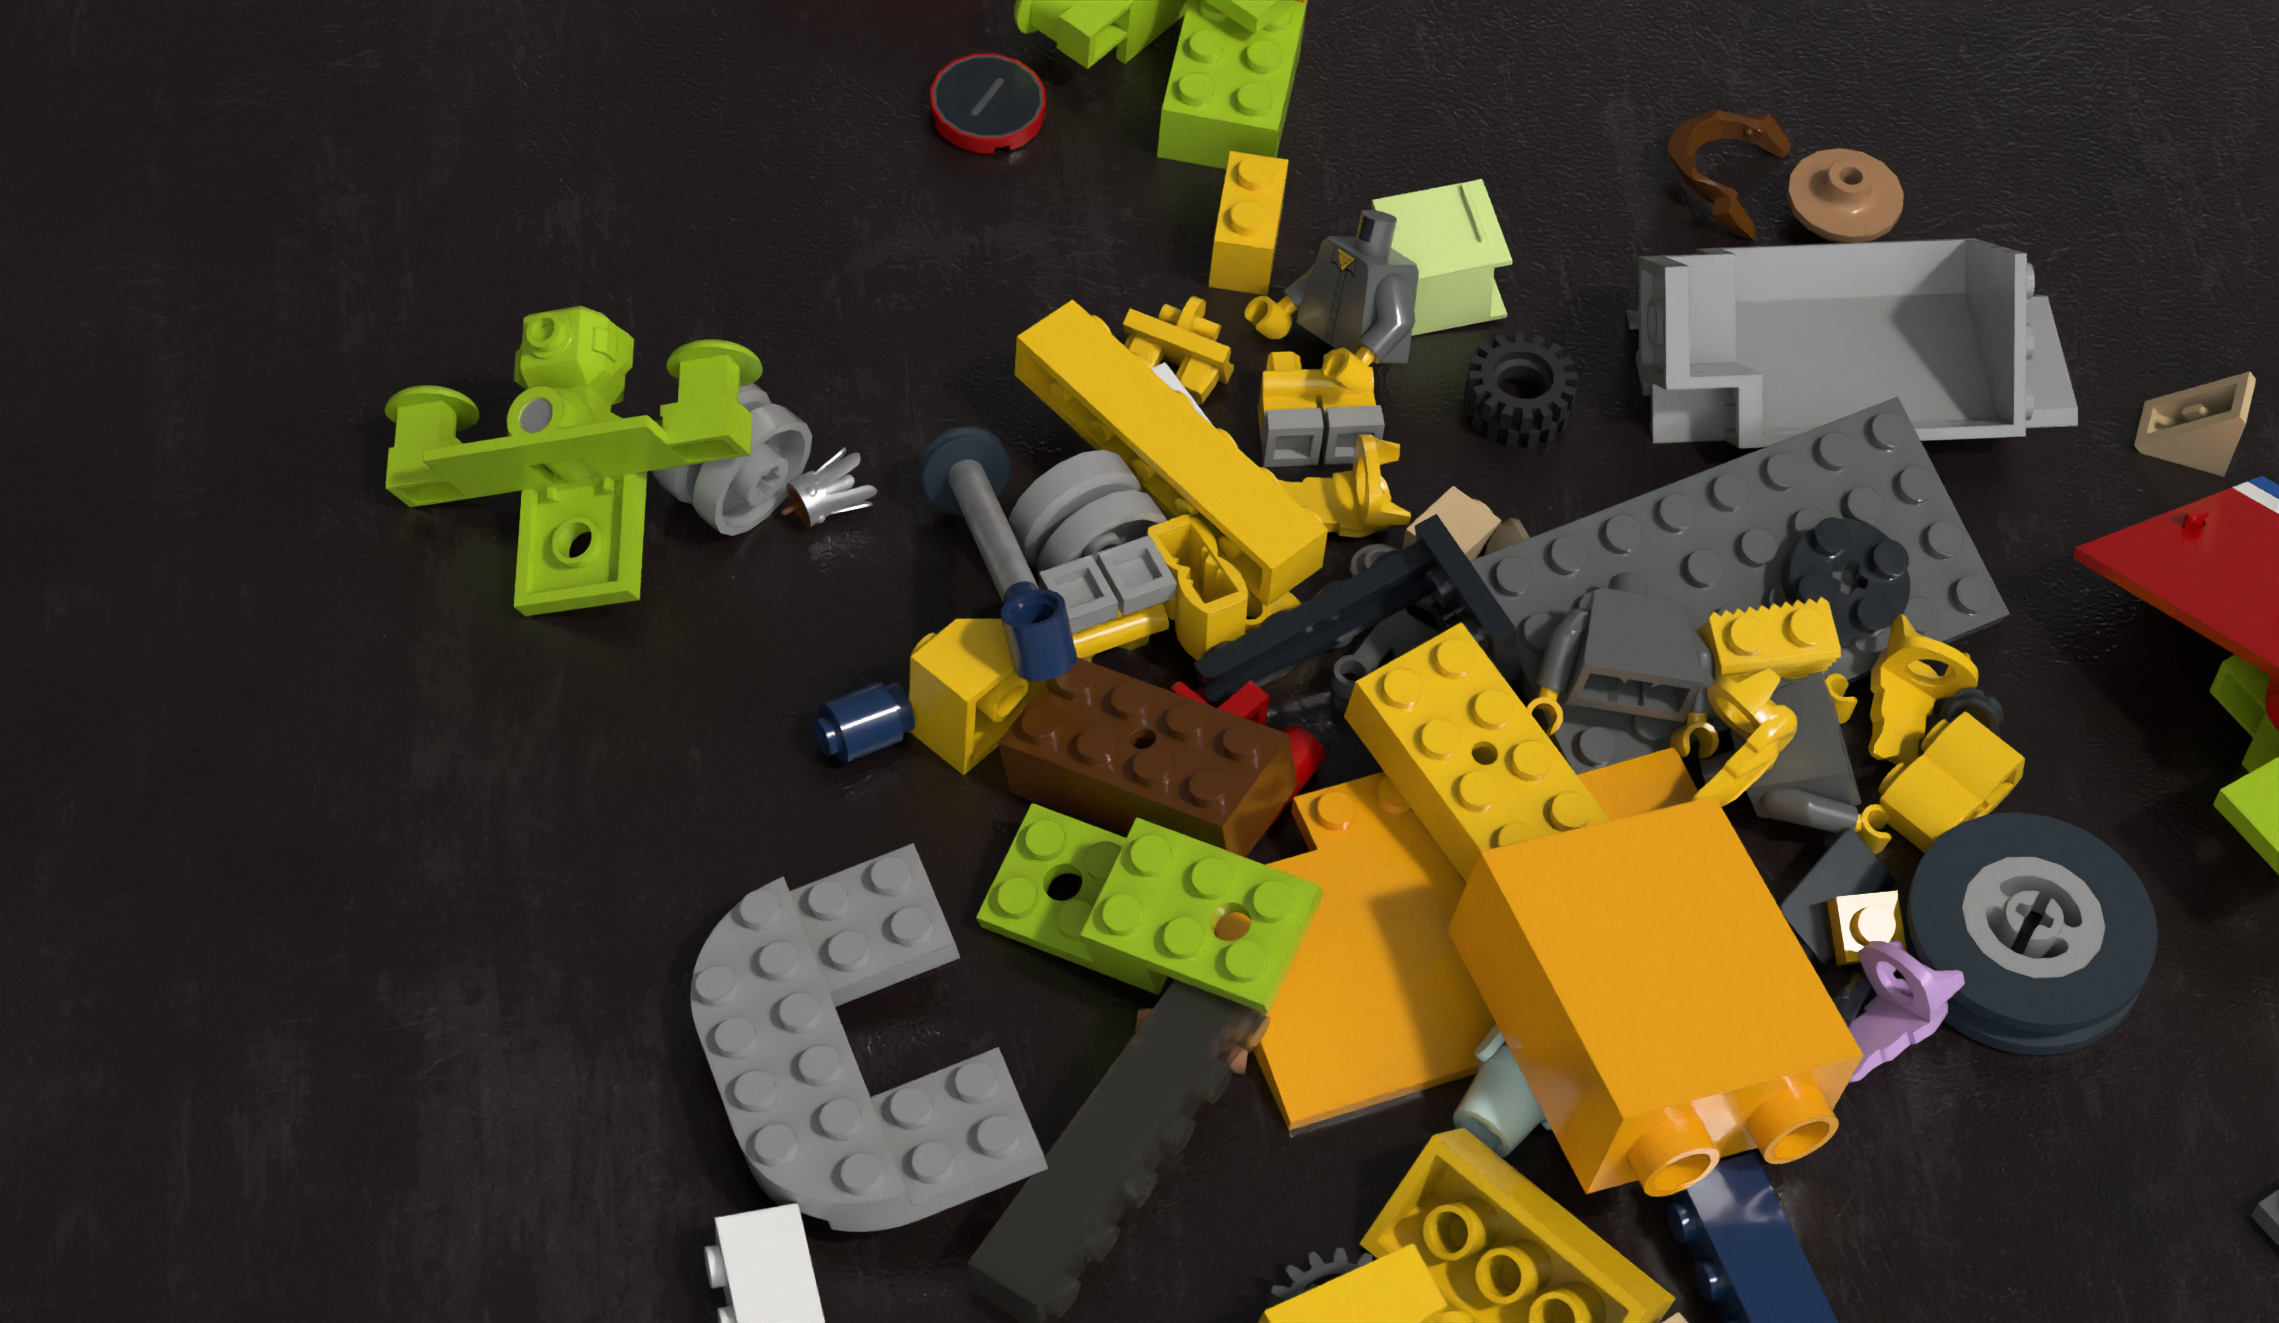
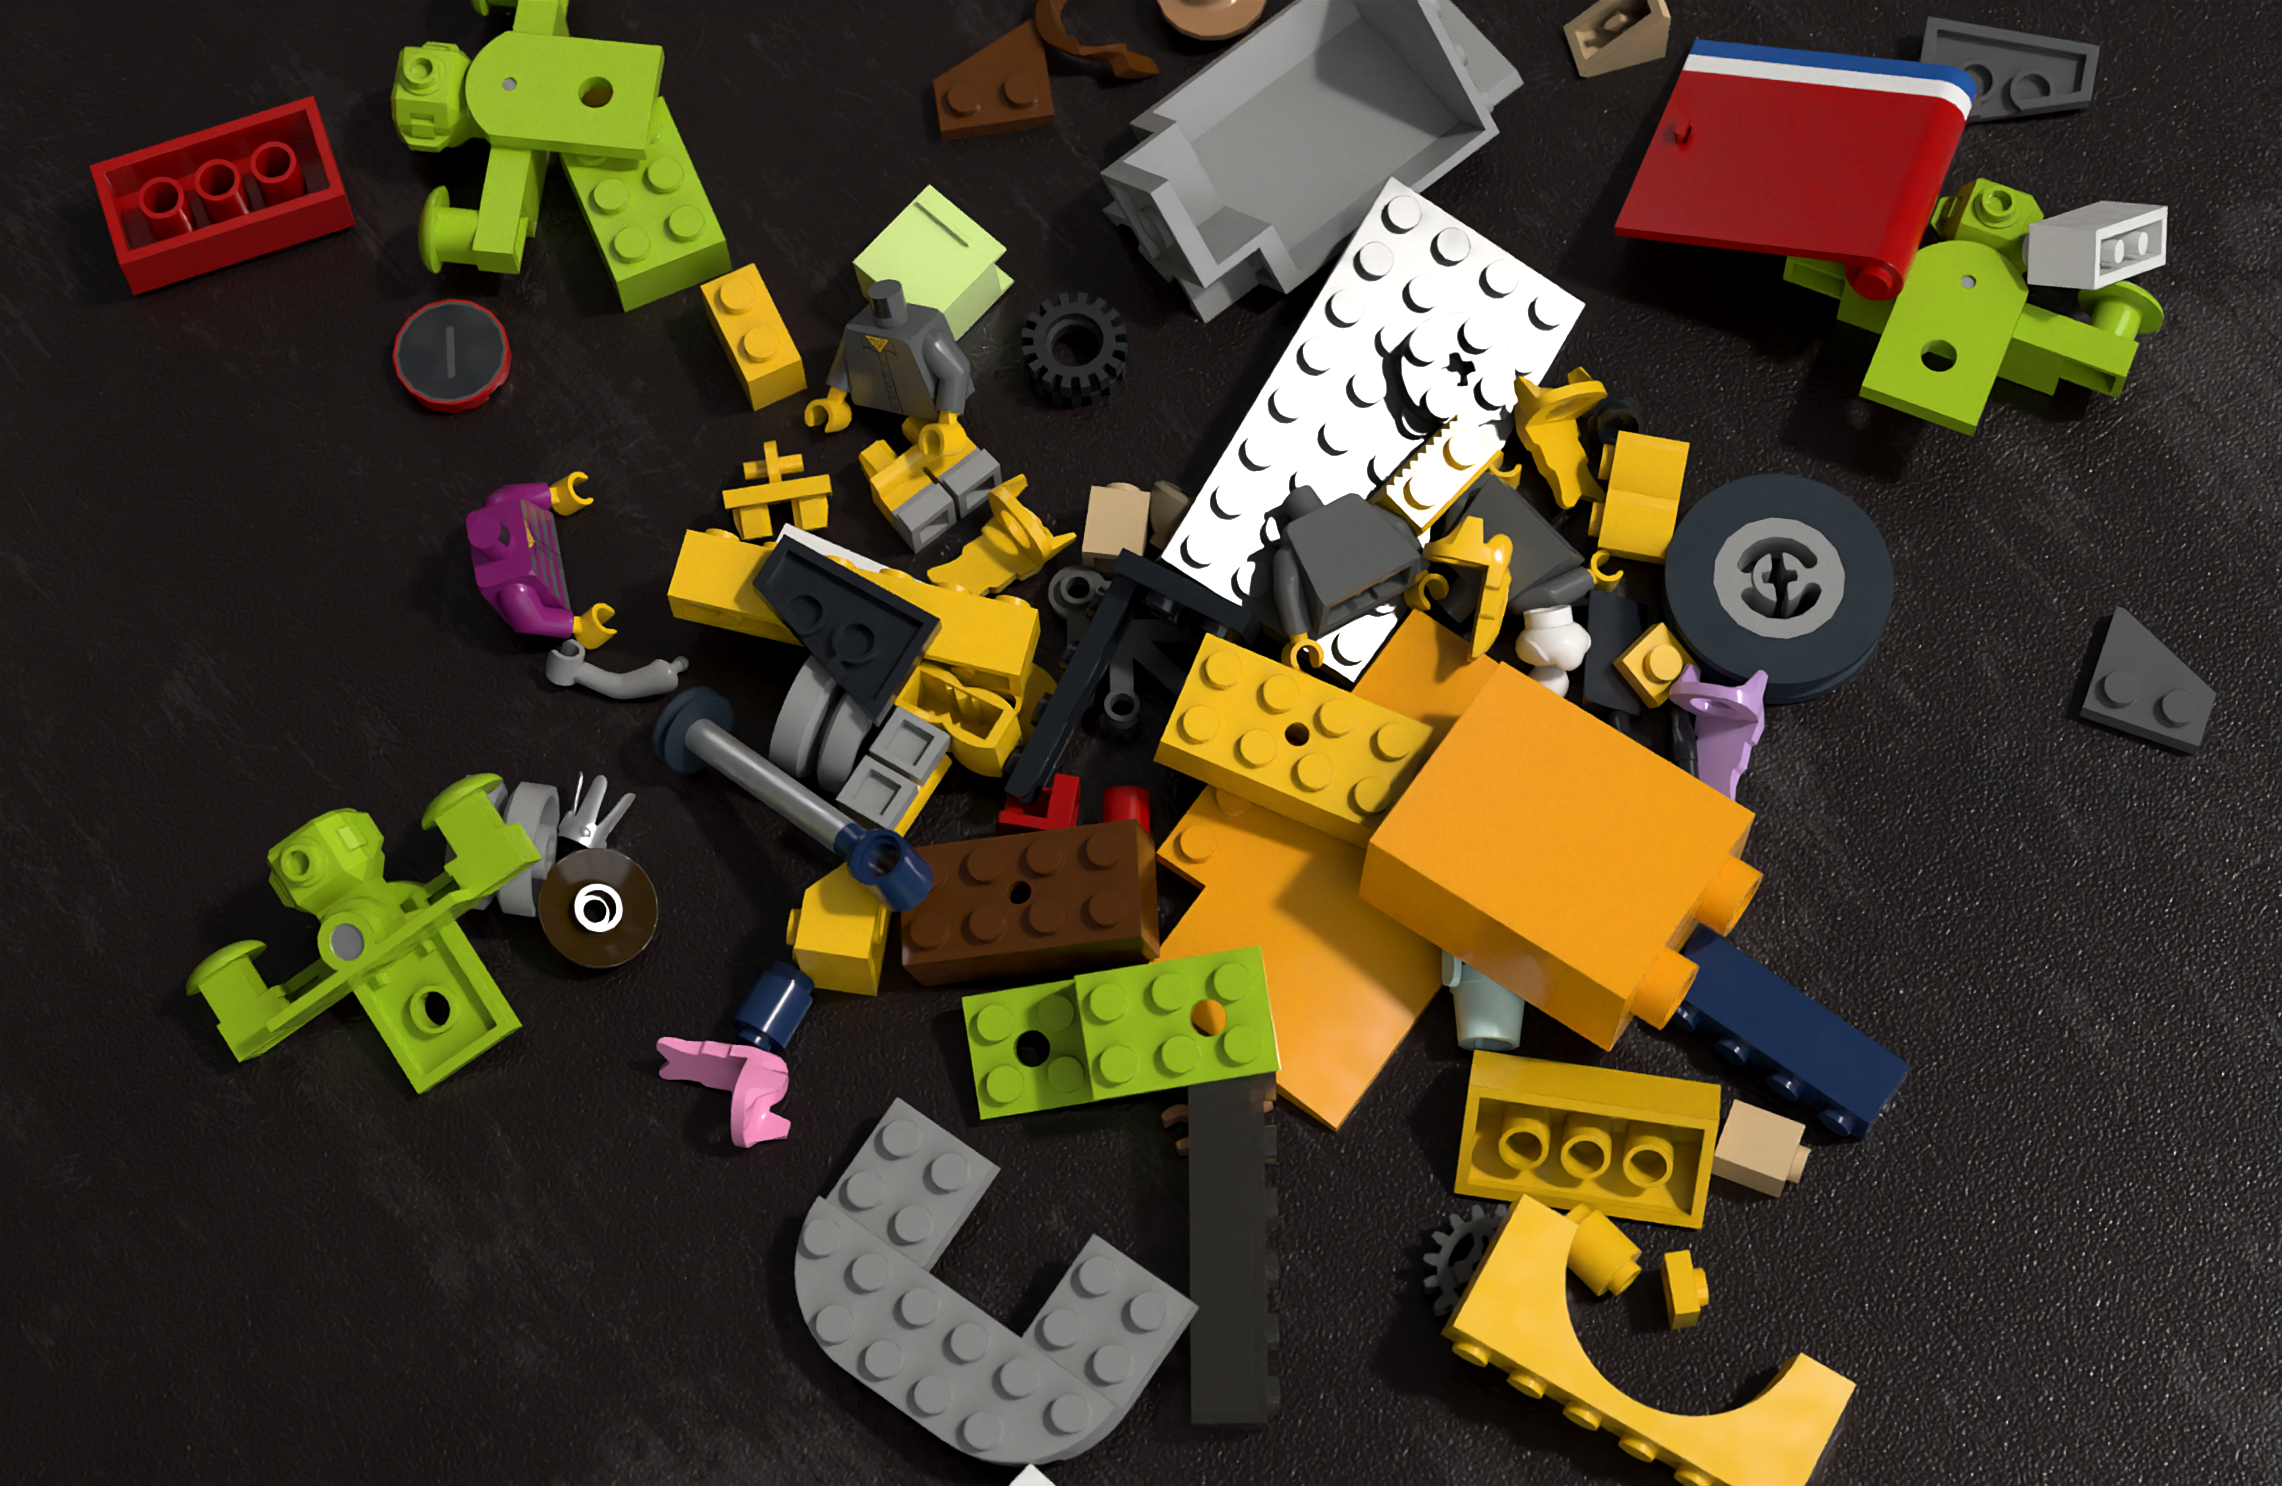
camera: 25 degrees left, 15 degrees up
(792, 535) = (620, 892): none -> dark brown dish
(794, 746) = (751, 1075): none -> bright pink hair
(900, 374) = (654, 679): none -> light grey piece
(921, 265) = (522, 565): none -> magenta torso
(1152, 438) = (847, 623): none -> black wing
(1601, 171) = (997, 88): none -> reddish brown wing
(1781, 843) = (1552, 645): none -> white animal

